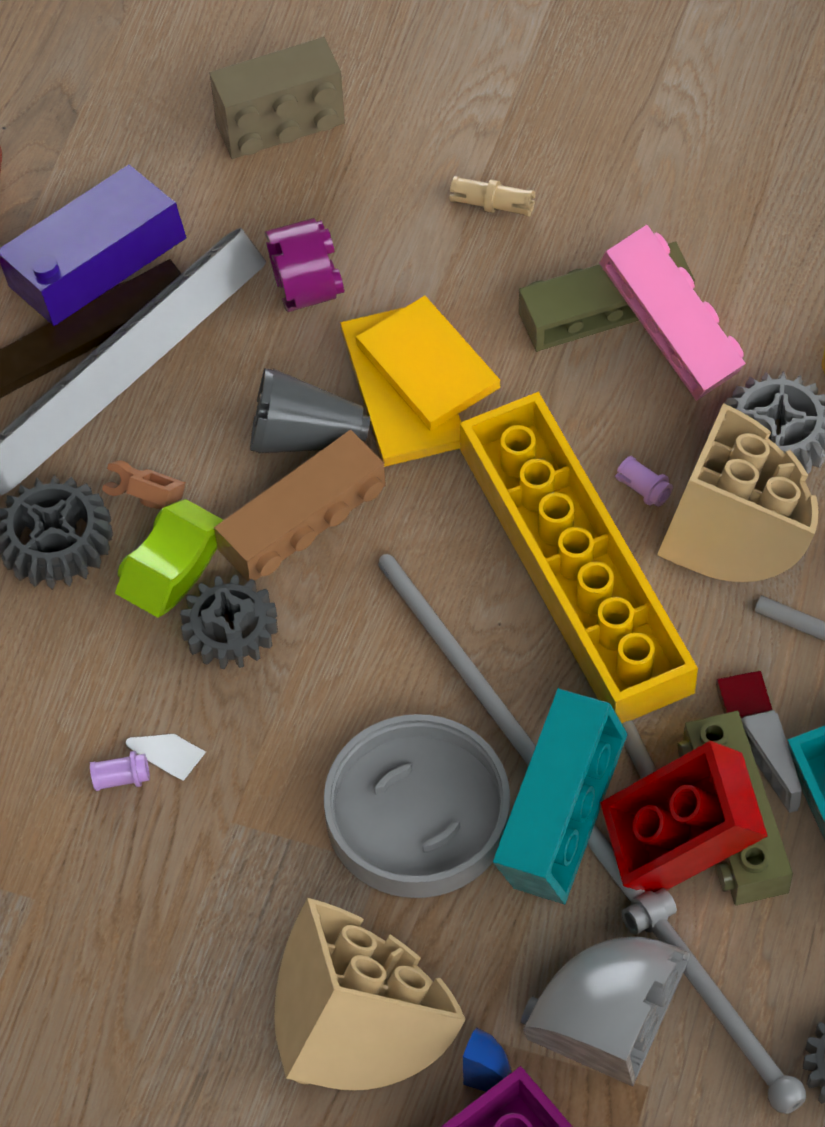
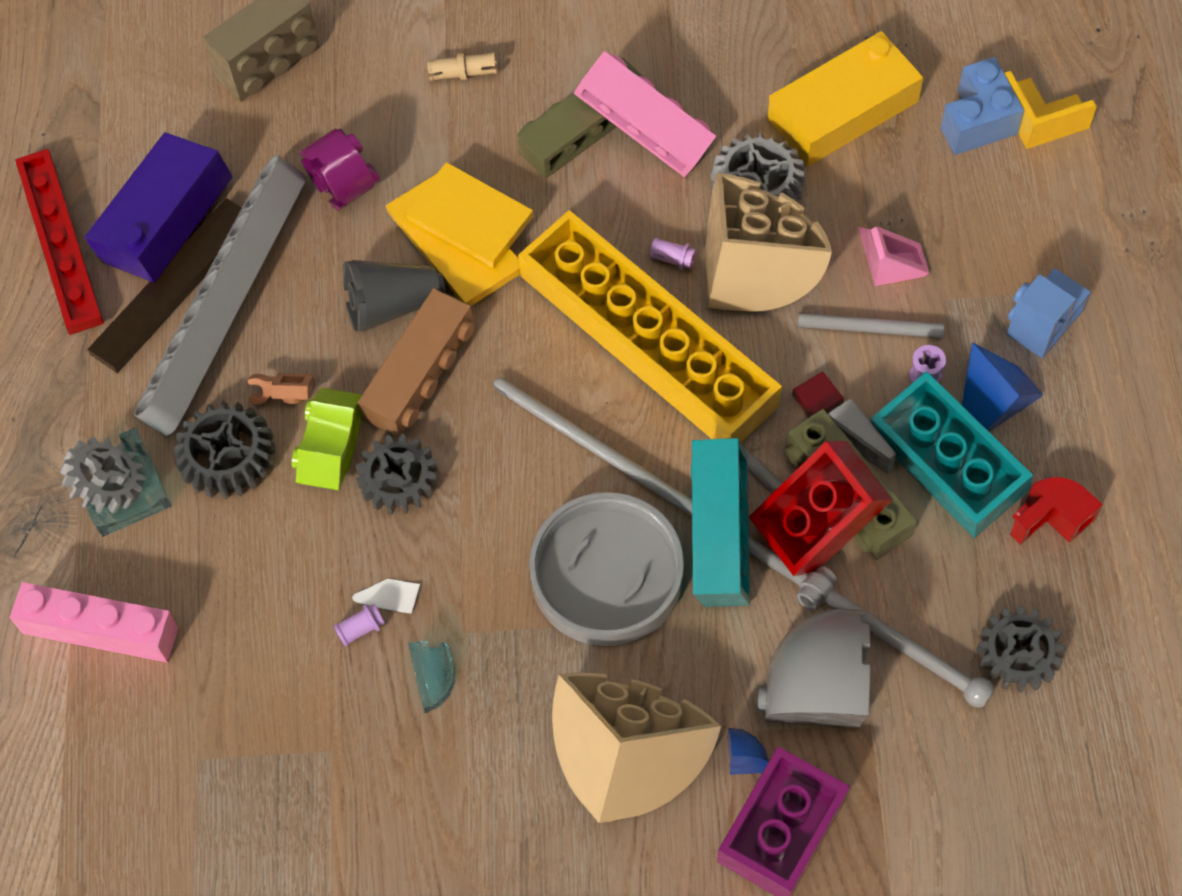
camera: 20 degrees left, 5 degrees up
(177, 852) = (433, 673): none -> clear light blue brick

